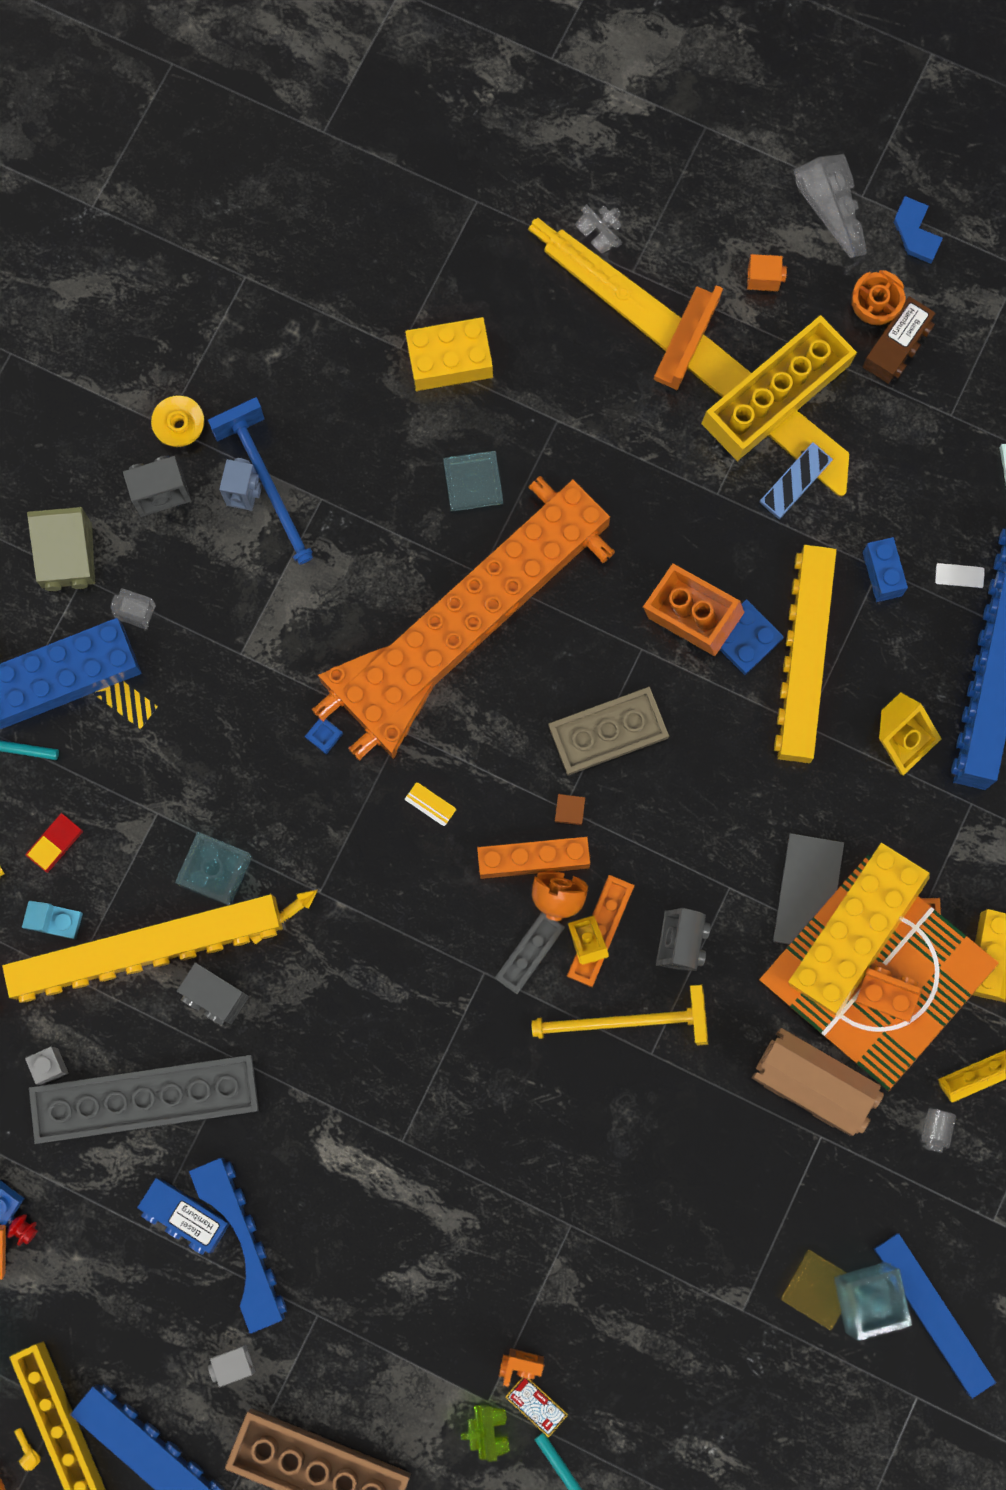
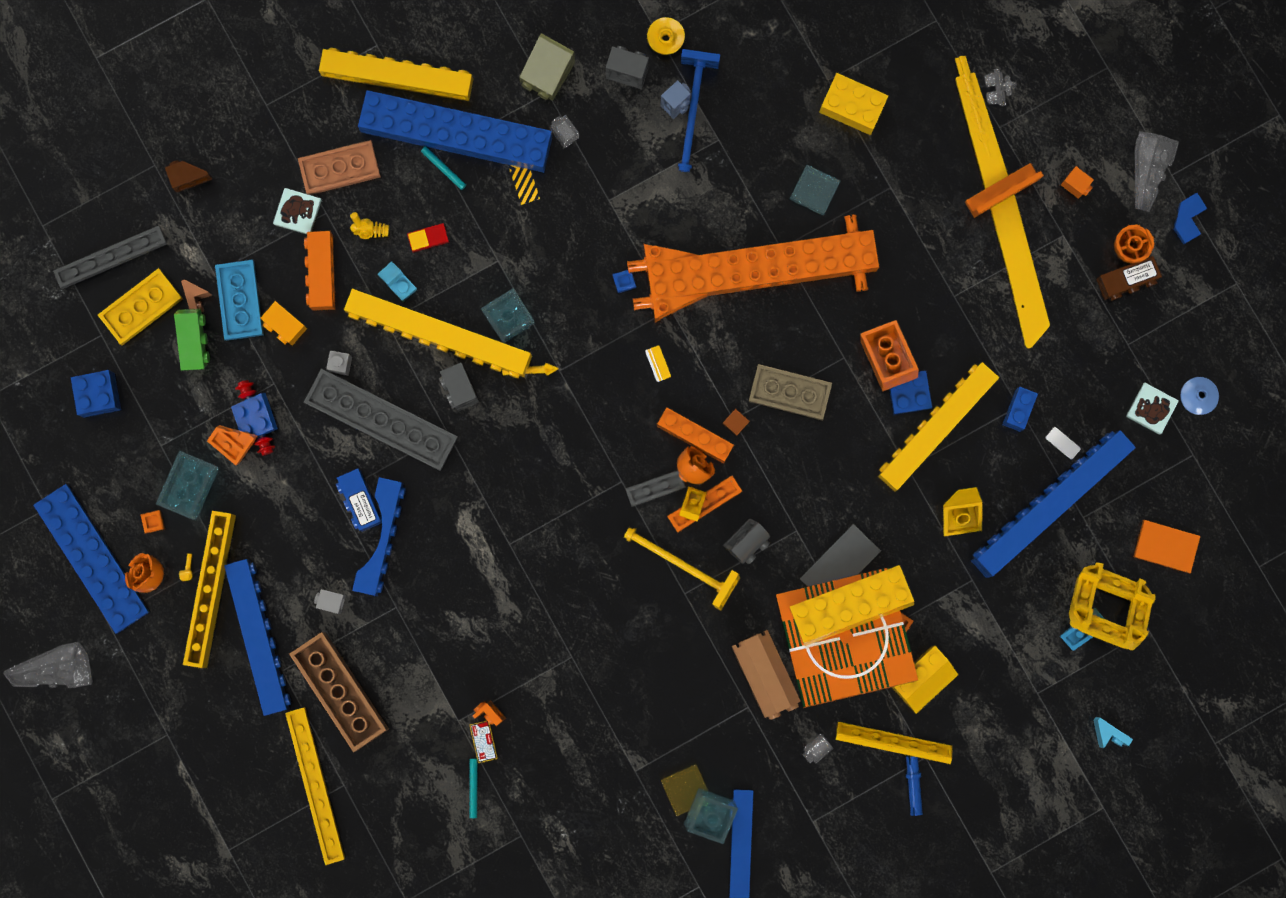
camera: 30 degrees right, 5 degrees up
(482, 1432) = (443, 734): clear neon green hips -> none
(778, 388) = (1034, 258): yellow brick -> none
(796, 480) = (1006, 320): tile -> none
(889, 994) = (842, 654): orange bracket -> none

